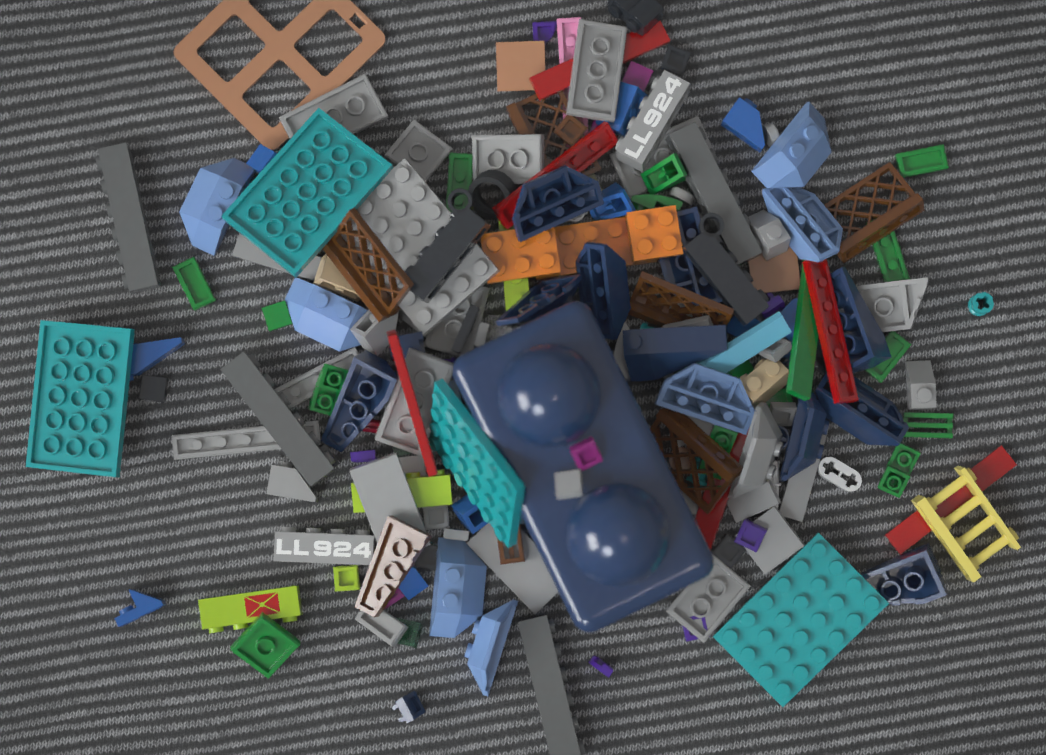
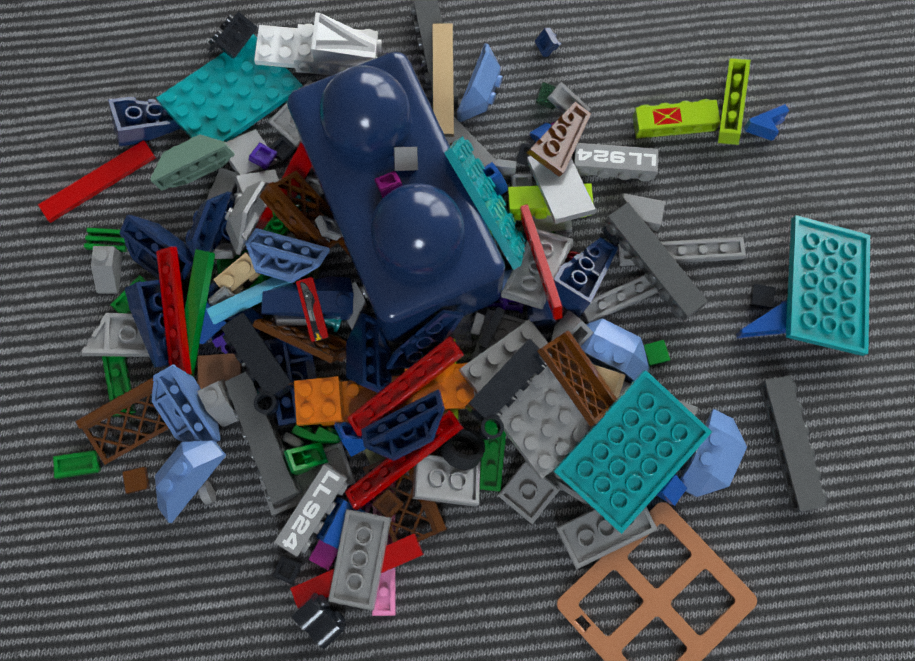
camera: 175 degrees left, 10 degrees down
(180, 630) = (734, 101): none -> lime brick
(194, 283) = (730, 384): green tile -> none
(265, 645) = (663, 88): green tile -> none
(327, 389) = (612, 286): green slope -> none
(346, 578) = (596, 137): lime tile -> none
(363, 456) = (582, 232): dark purple tile -> none
(456, 589) = (506, 127): medium blue wedge -> none
(518, 63) = (432, 571): nougat tile -> none
(536, 640) = (443, 77): none -> tan tile
(544, 30) = (408, 602): dark purple tile -> none
(557, 250) = (406, 385): none -> red tile
(663, 437) = (328, 227): none -> light grey tile
(668, 330) = (312, 309): none -> red sticker
(694, 681) = (316, 48): none -> white wedge
(745, 123) = (228, 505): blue slope -> none
(807, 695) = (234, 34): none -> black bracket
(835, 518) = (190, 161): none -> sand green wedge
(842, 469) = (183, 207): white beam -> none
(852, 146) = (136, 480): none -> reddish brown tile
(898, 469) = (138, 202): green slope -> none
(942, 525) = (104, 155): light yellow fence -> none
(973, 305) = (44, 340): teal bush -> none

